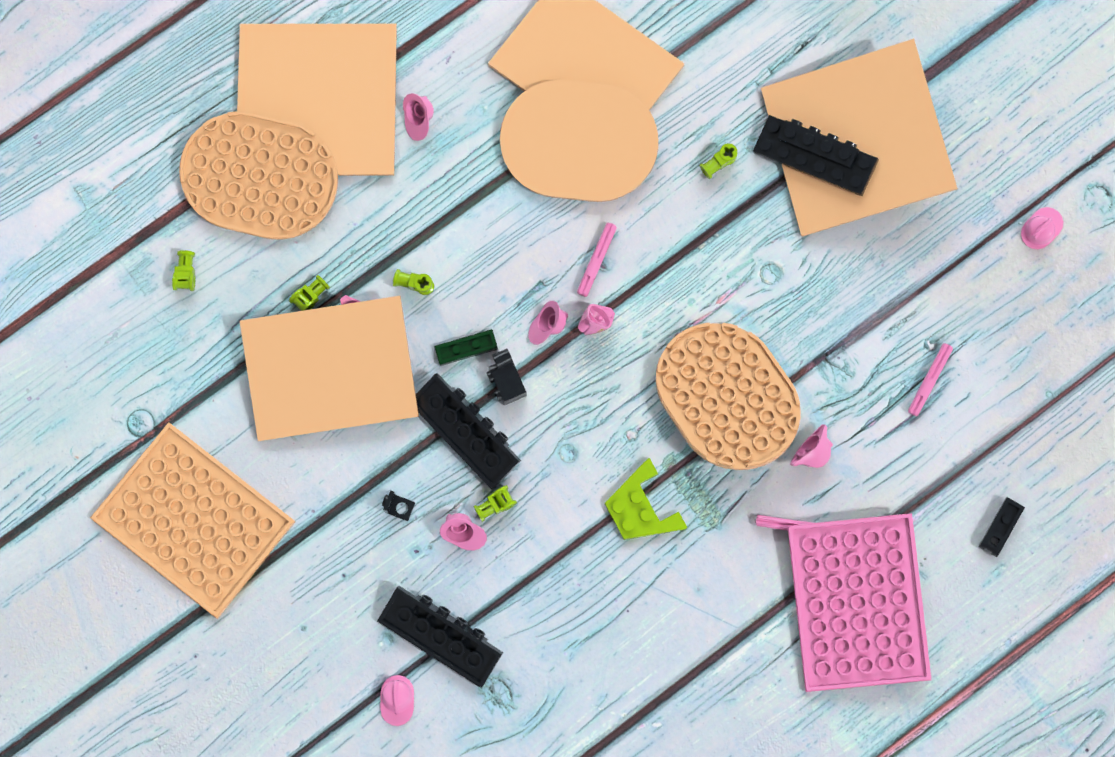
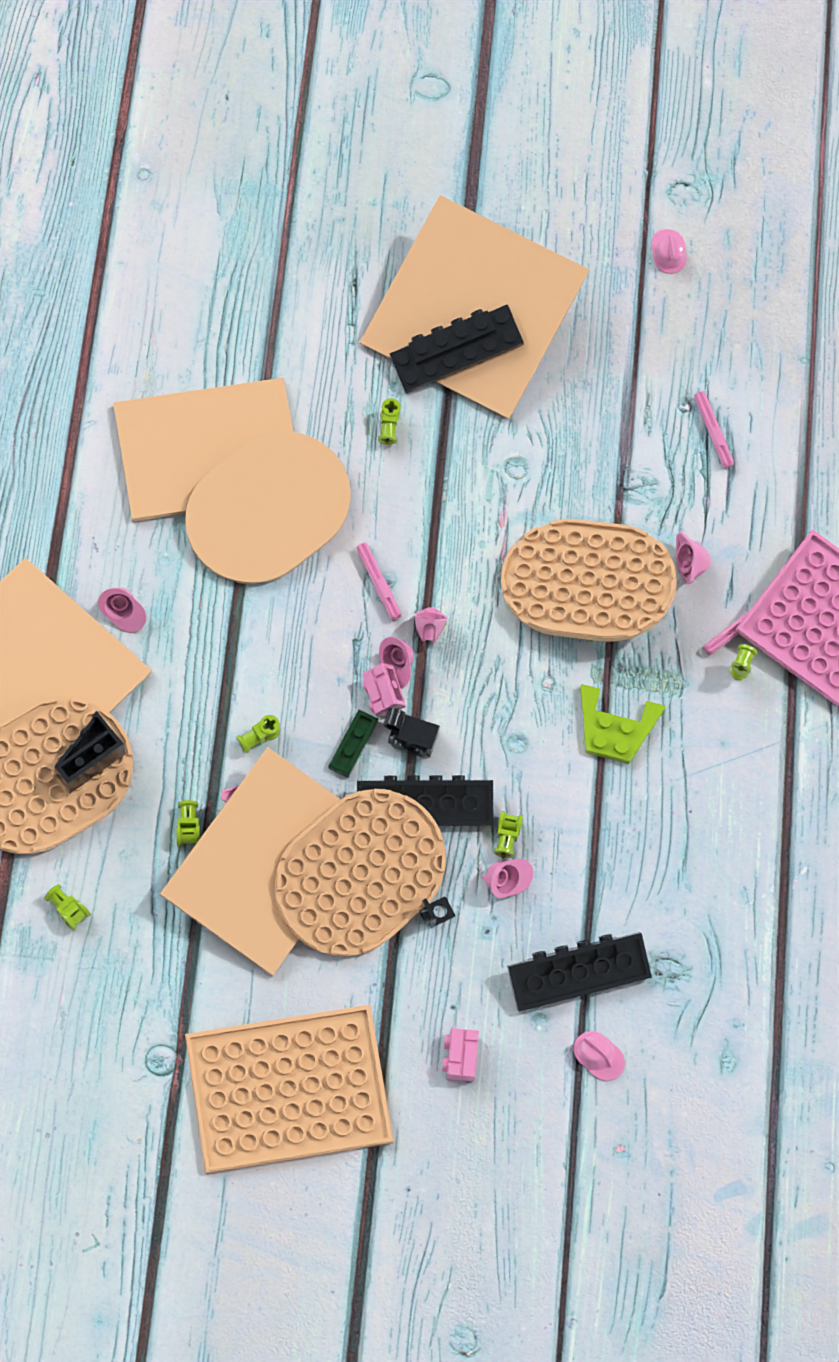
camera: 55 degrees left, 10 degrees down
(292, 189) = (89, 754): none -> black wedge
(312, 610) = (461, 1054): none -> bright pink brick
(376, 433) = (360, 872): none -> light nougat tile
(519, 332) = (383, 689): none -> bright pink brick
(766, 552) = (741, 666): none -> lime connector

